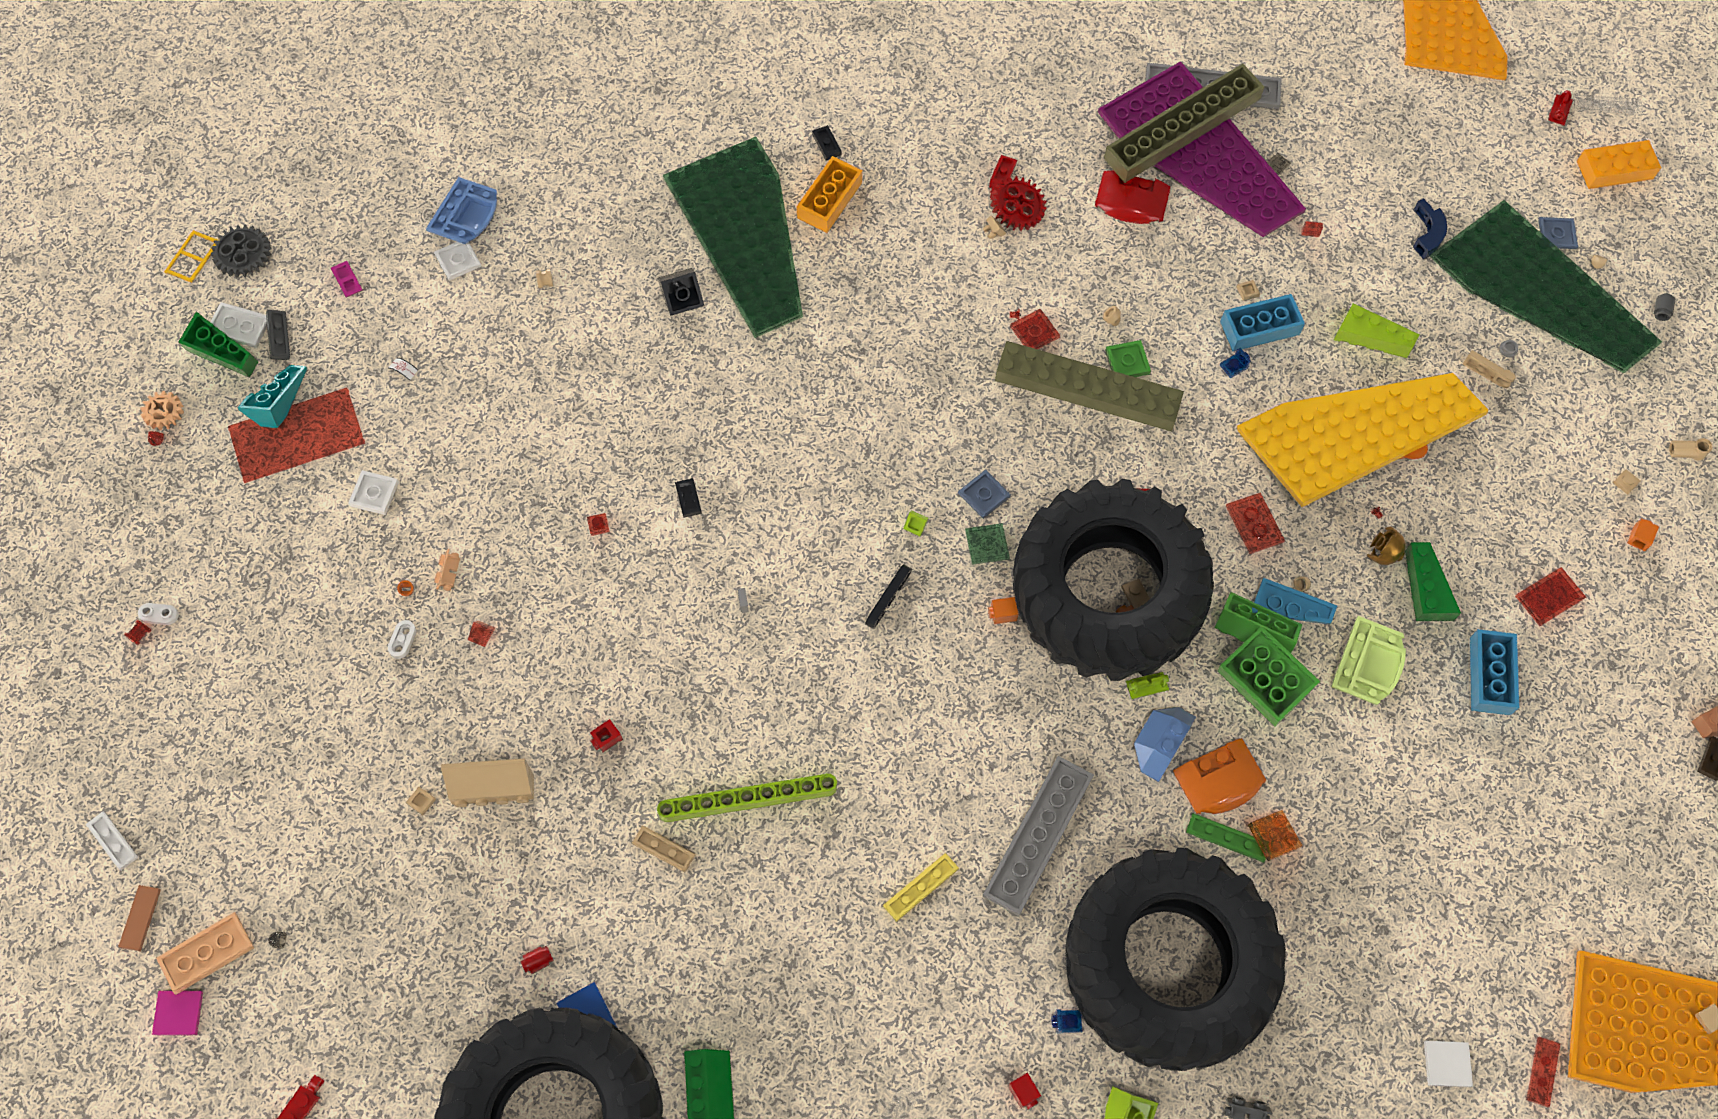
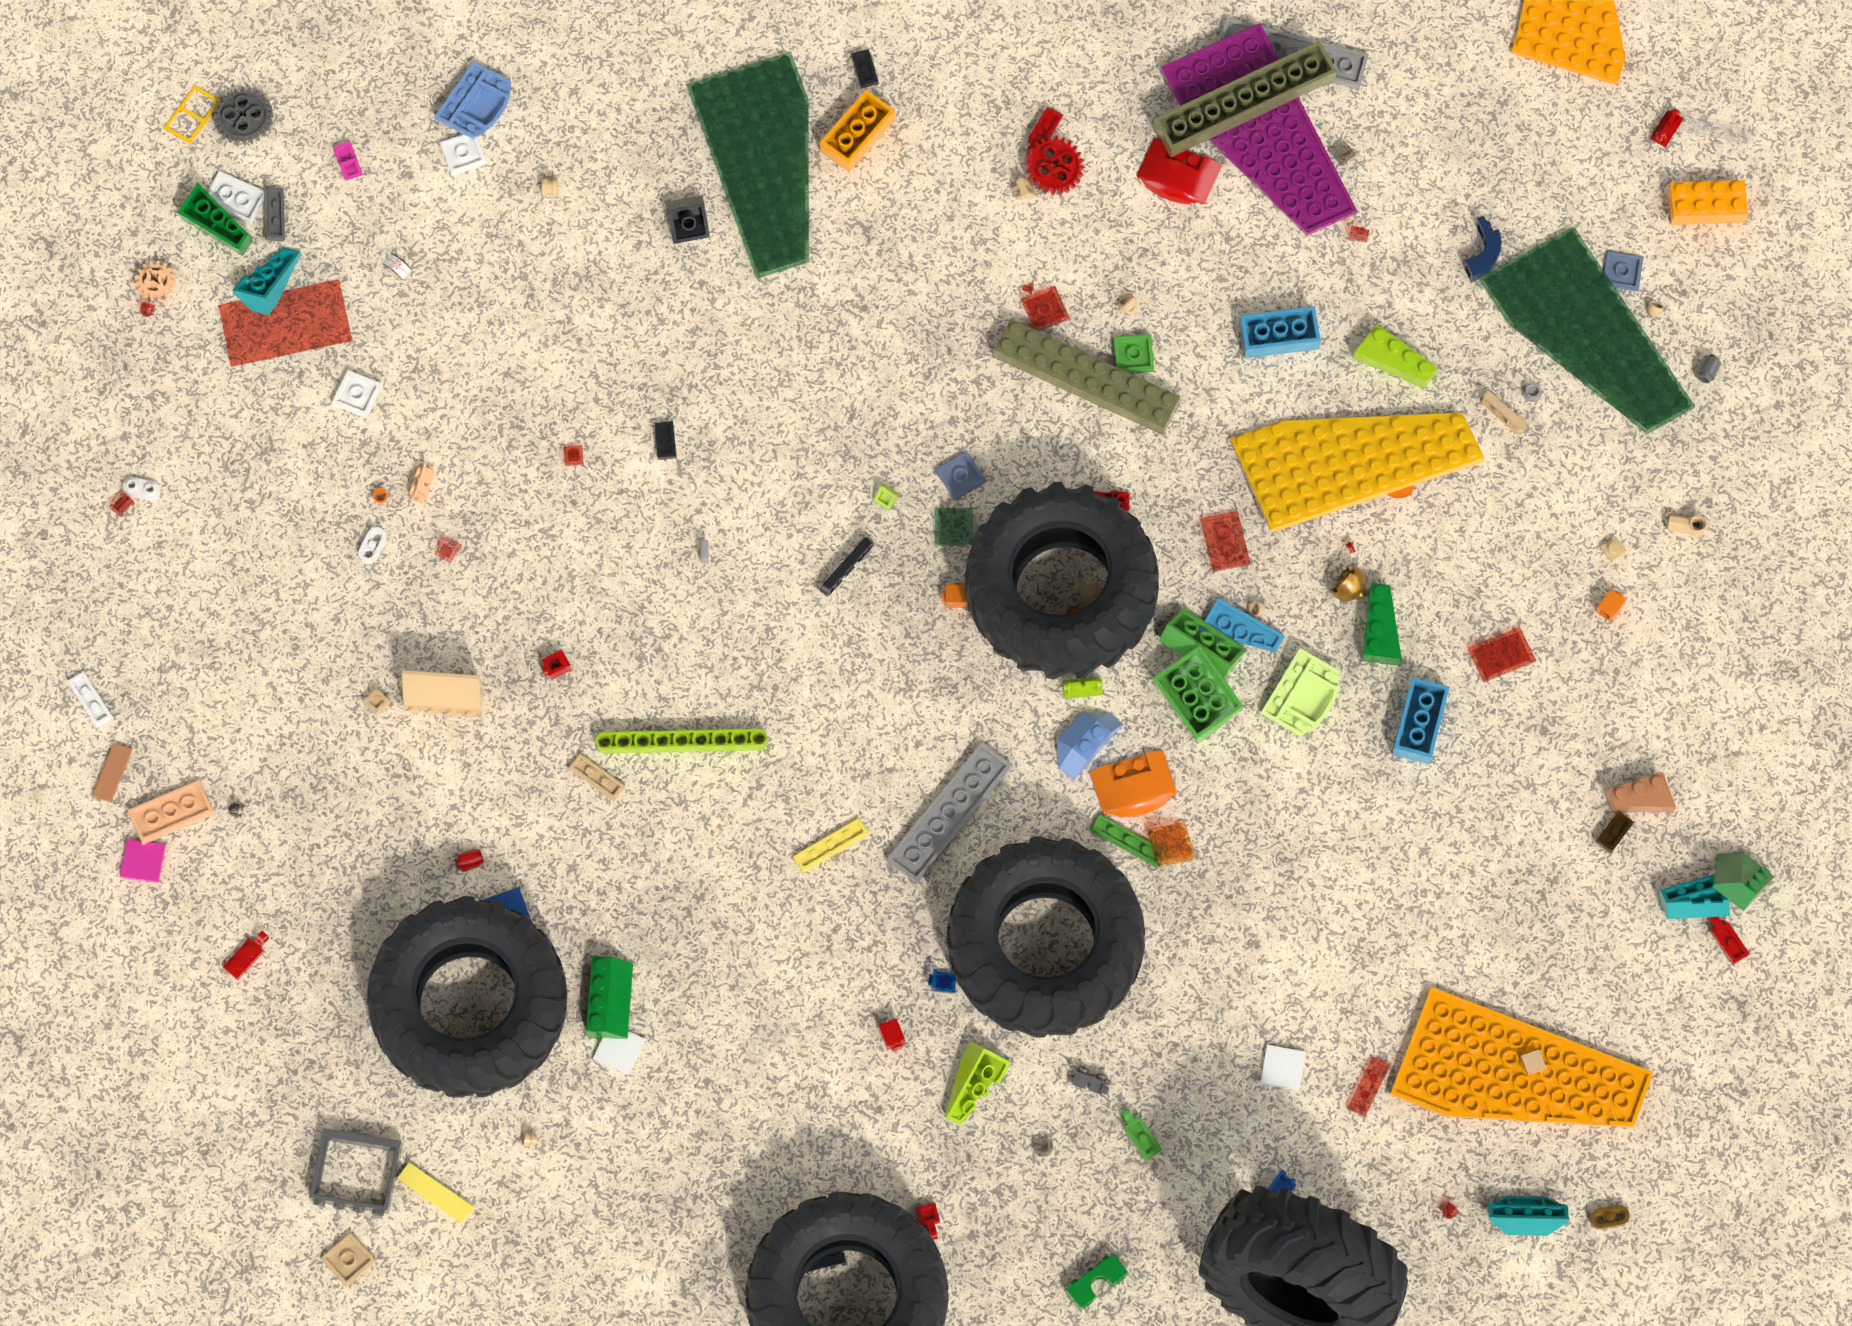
camera: 10 degrees right, 5 degrees up
(1236, 364) = (1244, 372): clear blue bracket -> none
(1248, 290) = (1276, 293): tan tile -> none

